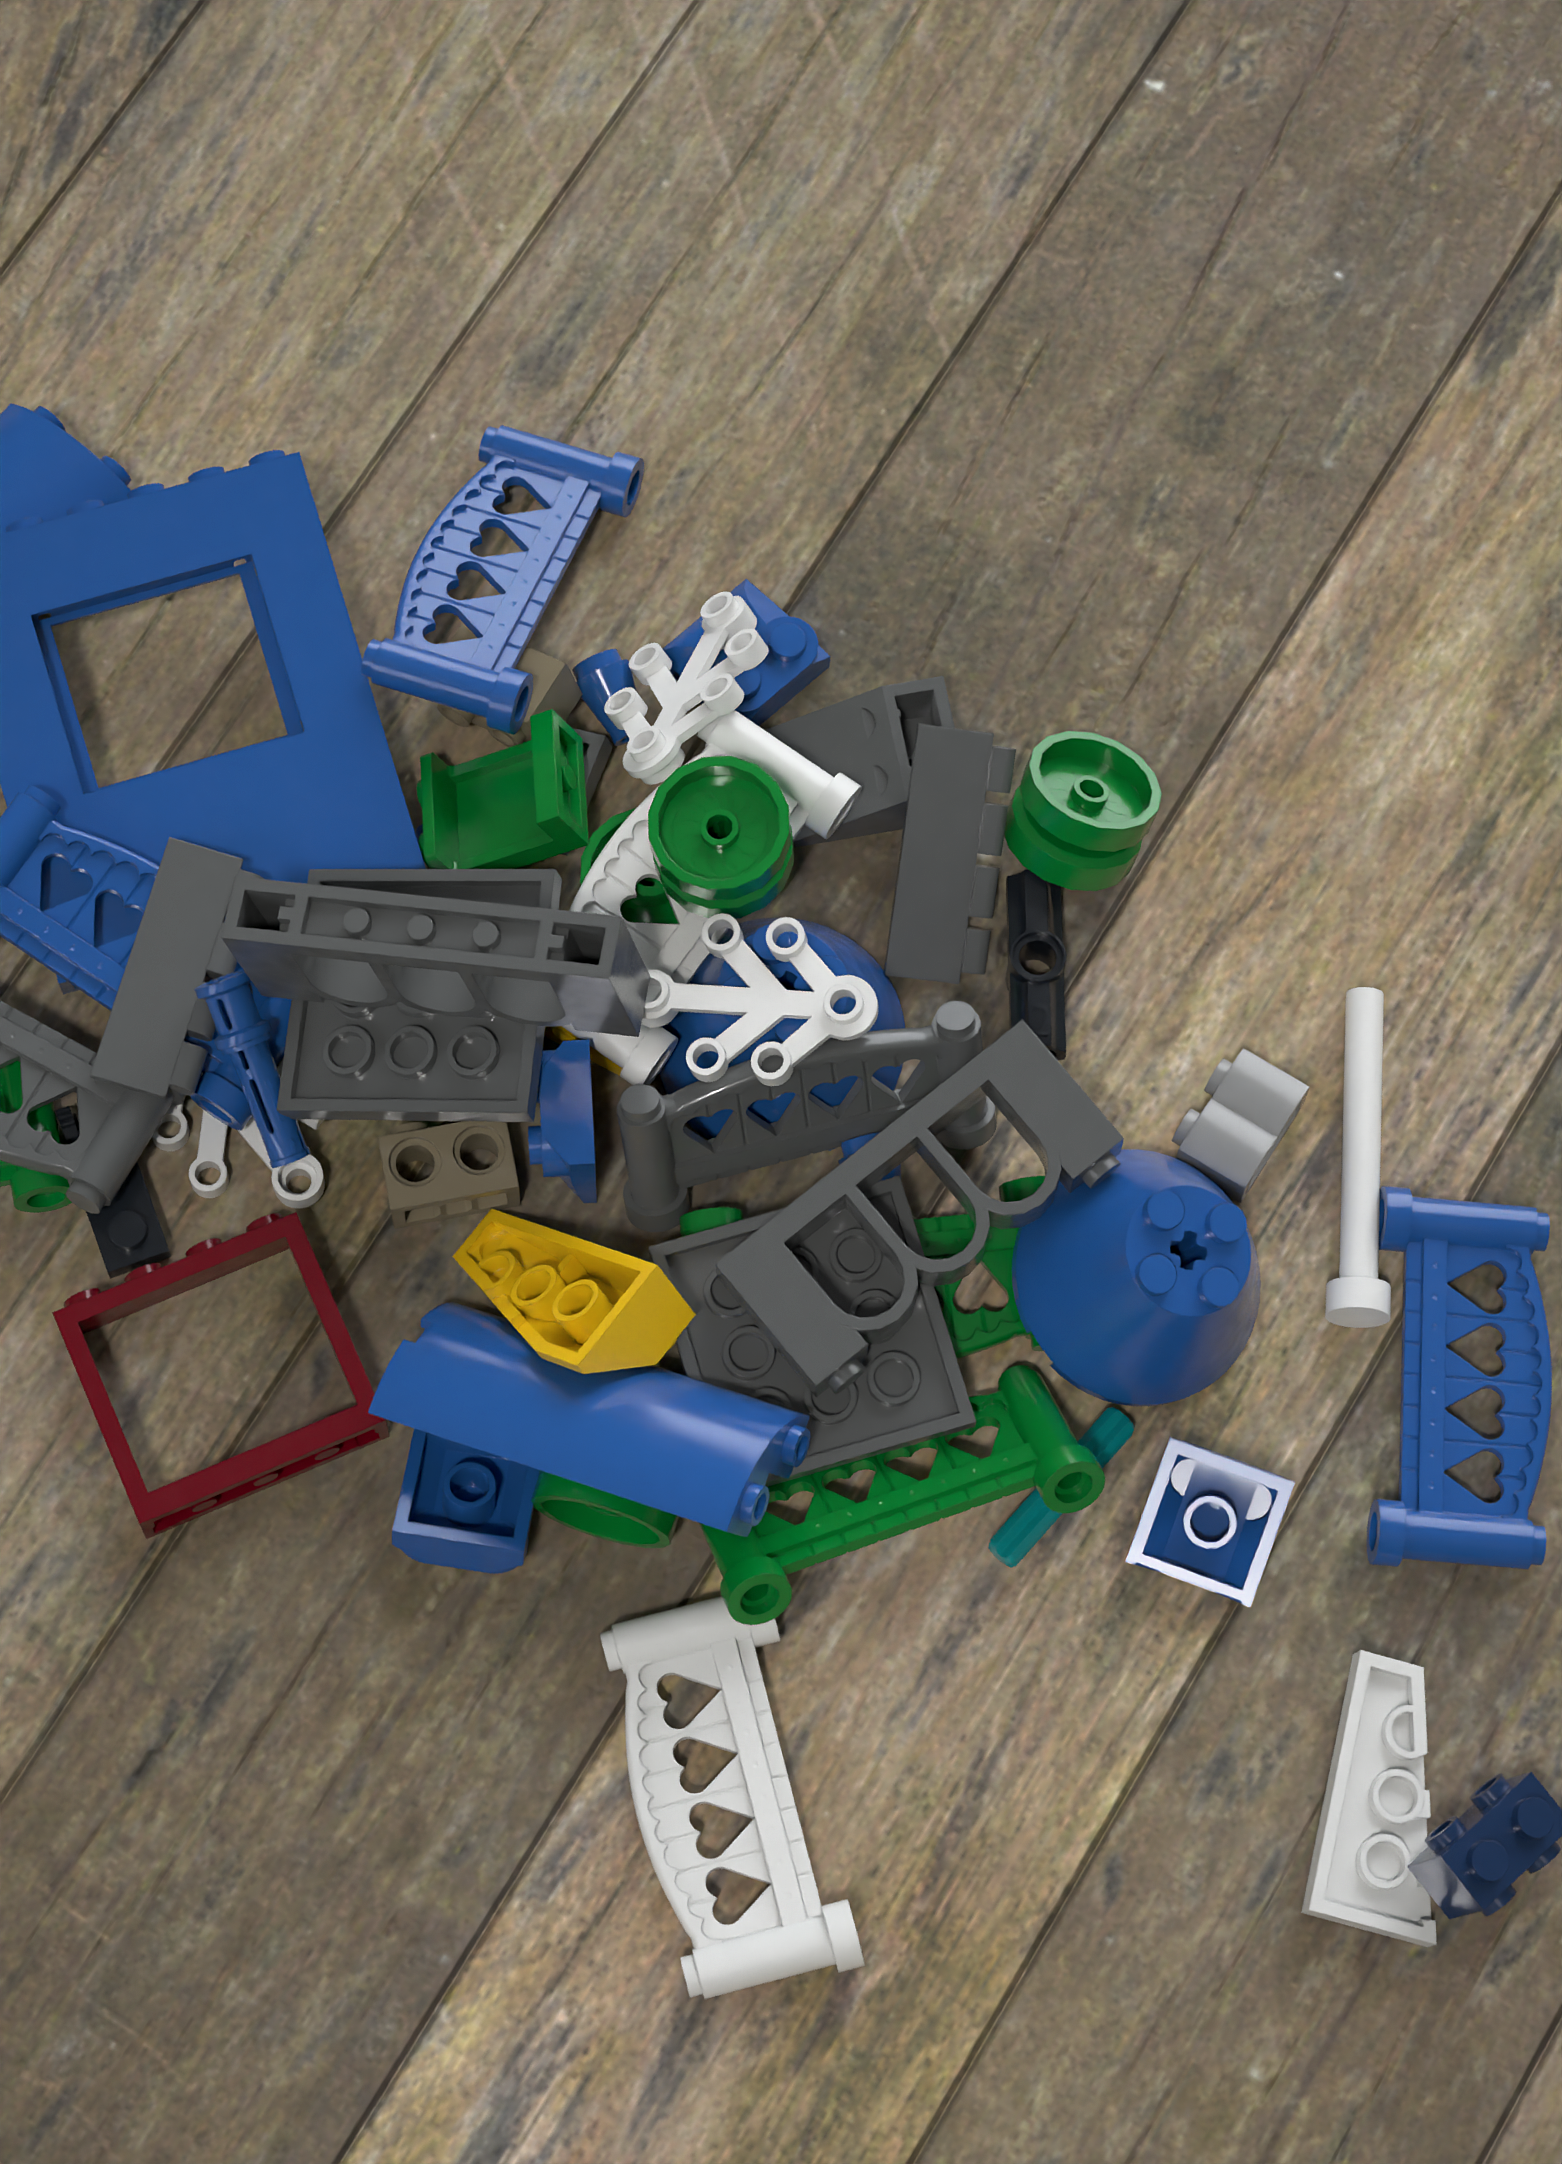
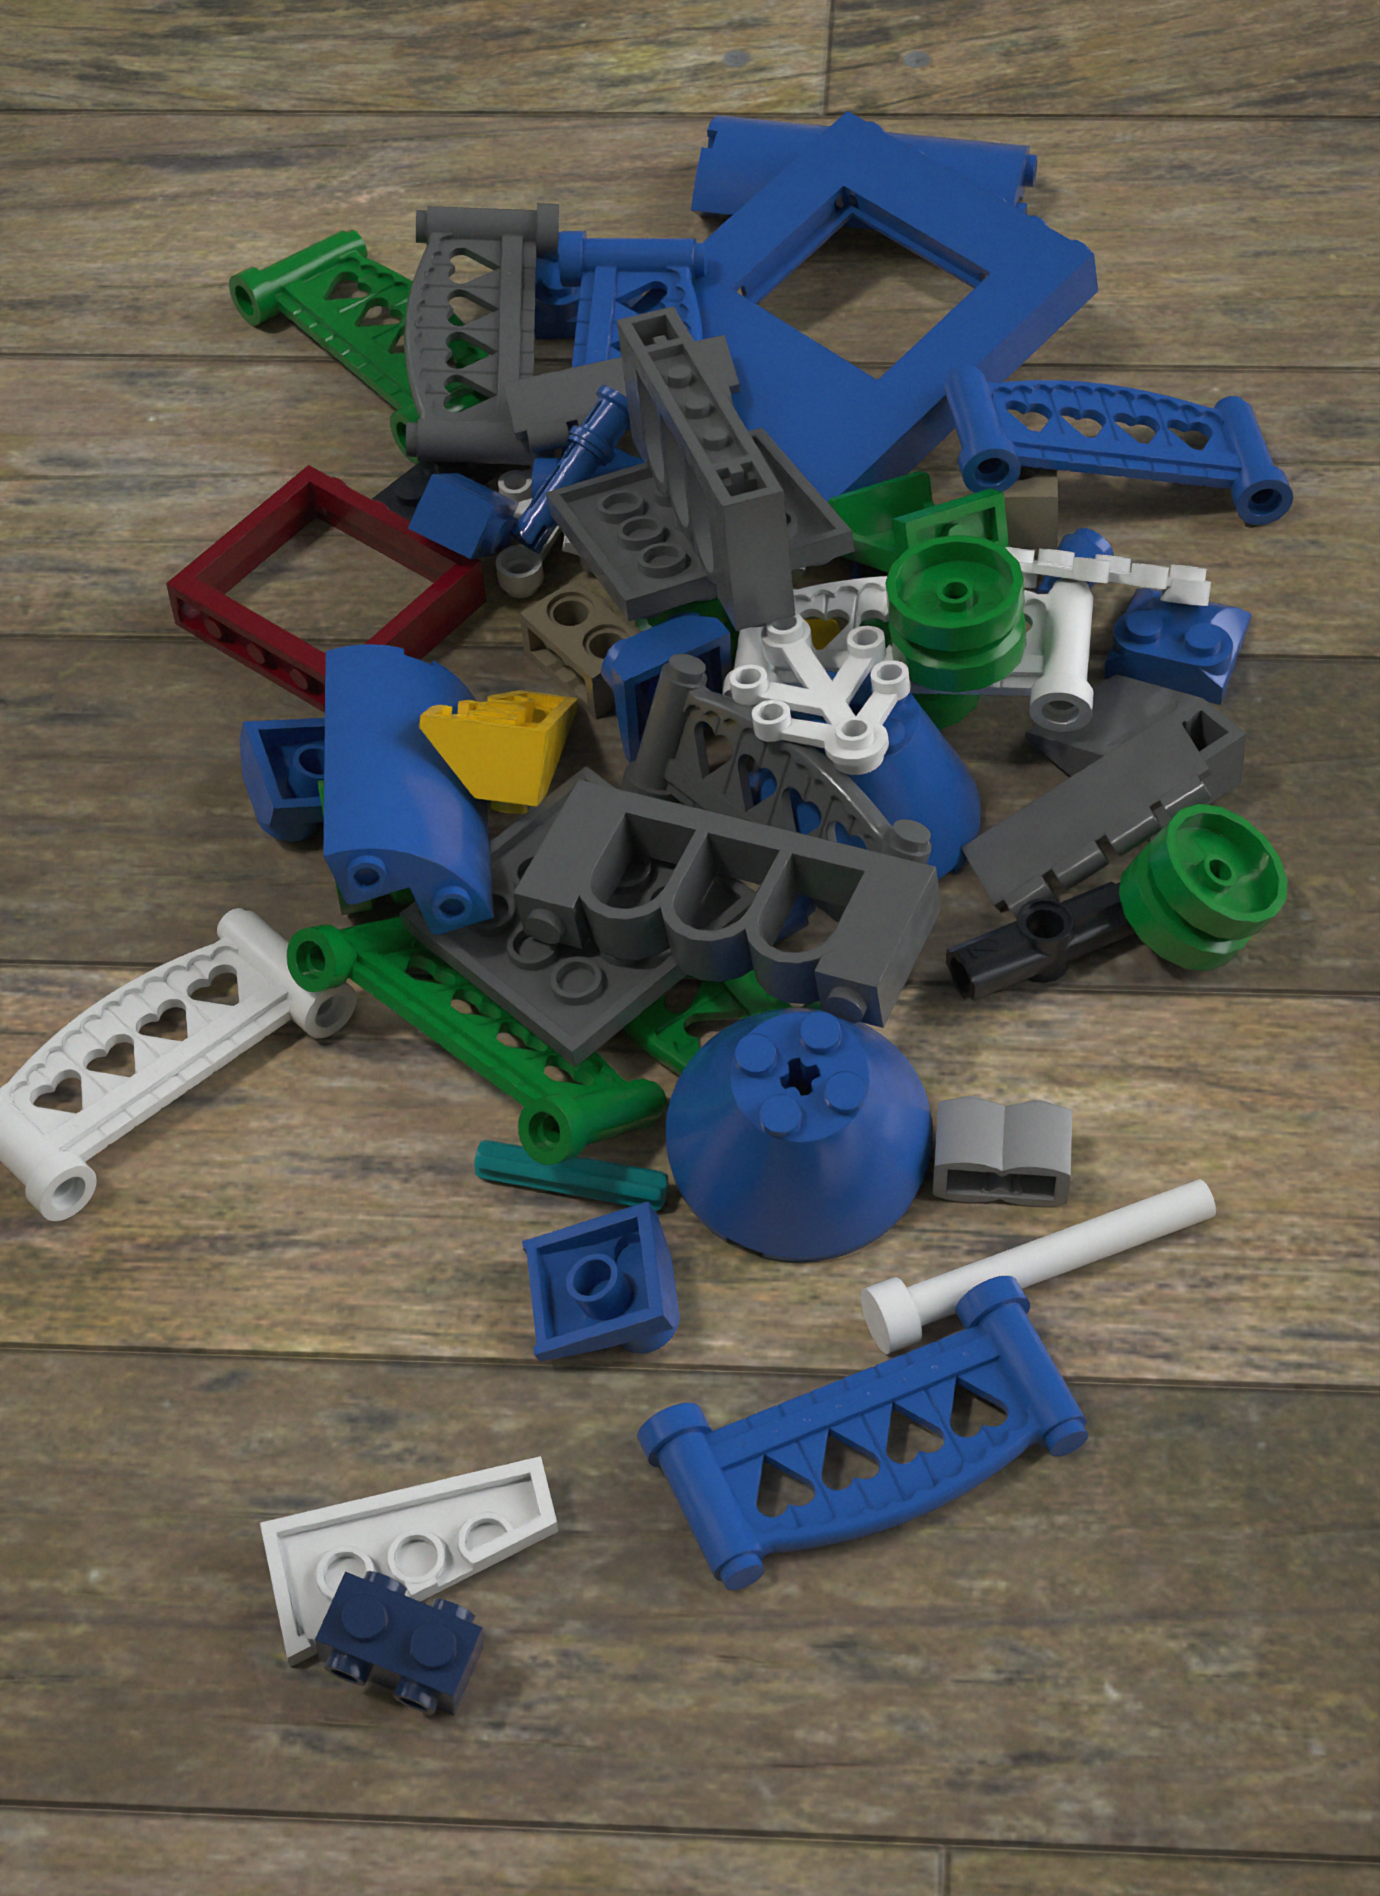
camera: 70 degrees right, 20 degrees down
(237, 1198) = (464, 516): none -> blue brick

